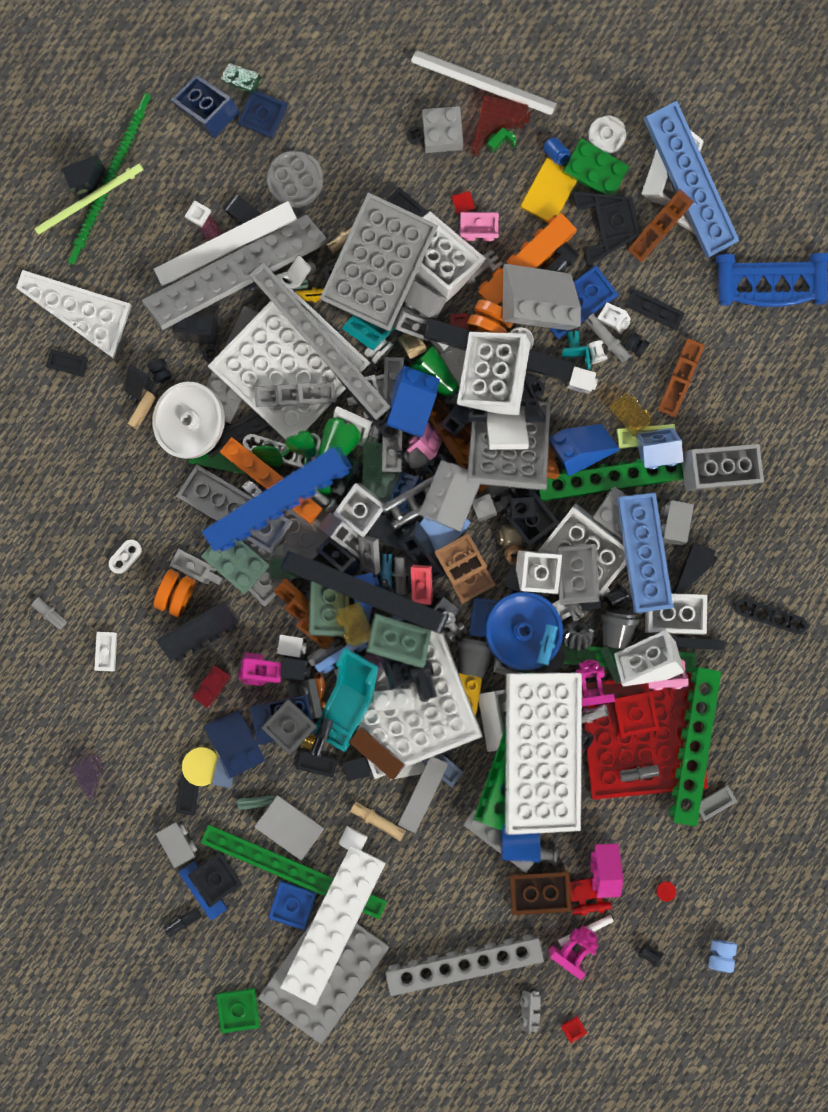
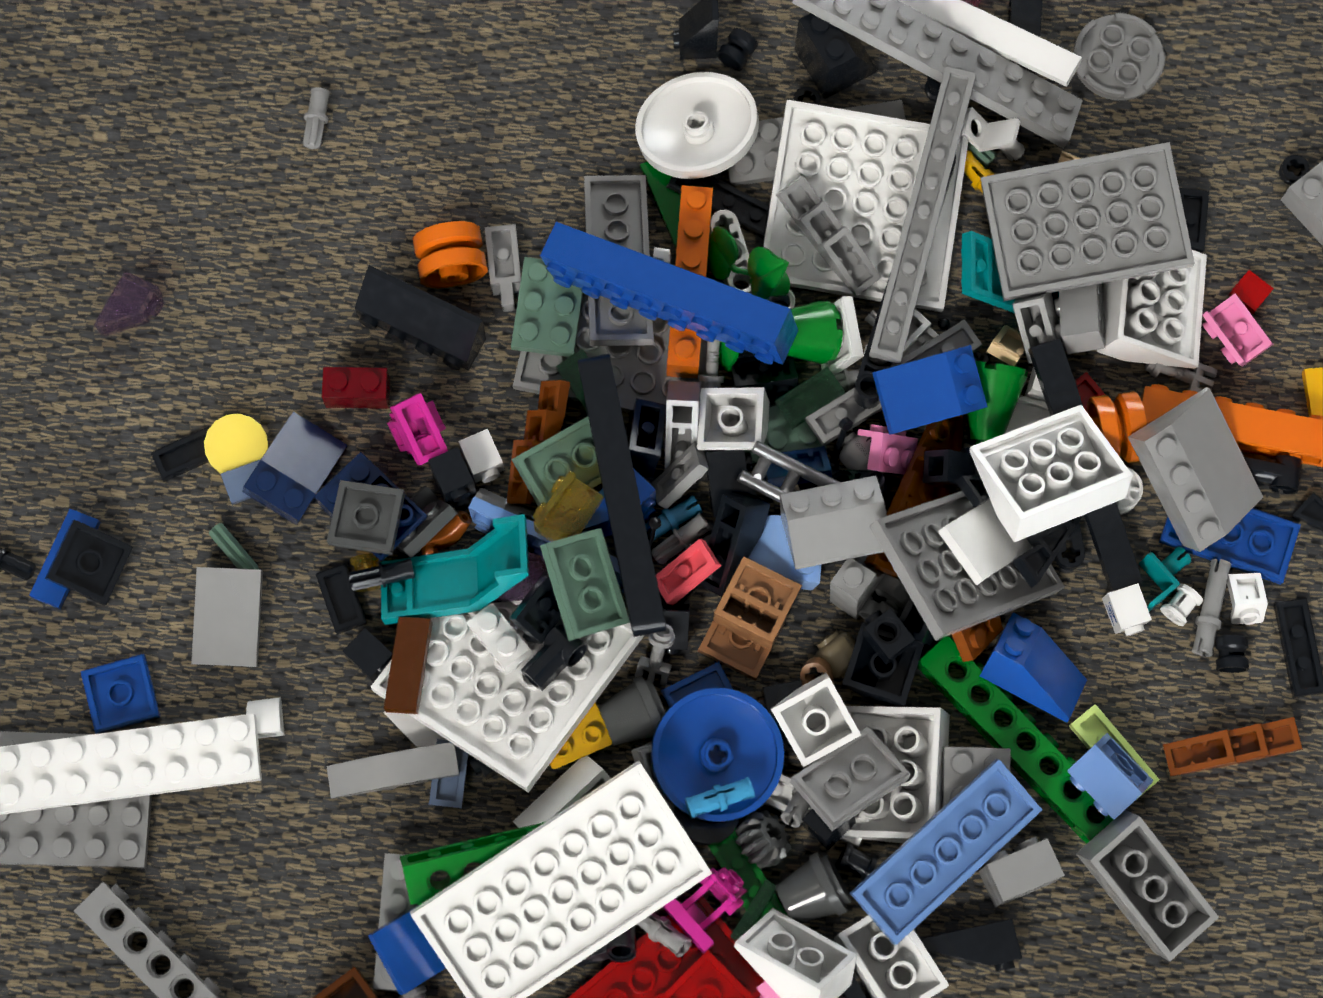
camera: 55 degrees right, 10 degrees down
(105, 651) = (312, 221): white plate -> none
(125, 556) = (459, 162): white plate -> none
(142, 410) = (669, 60): tan tile -> none
(177, 844) = (107, 481): light grey brick -> none
(280, 865) = (165, 642): green plate -> none
(373, 818) = (314, 733): tan pin -> none
(380, 352) = (965, 307): white wheel -> none
(630, 414) = (1128, 707): clear yellow bracket -> none

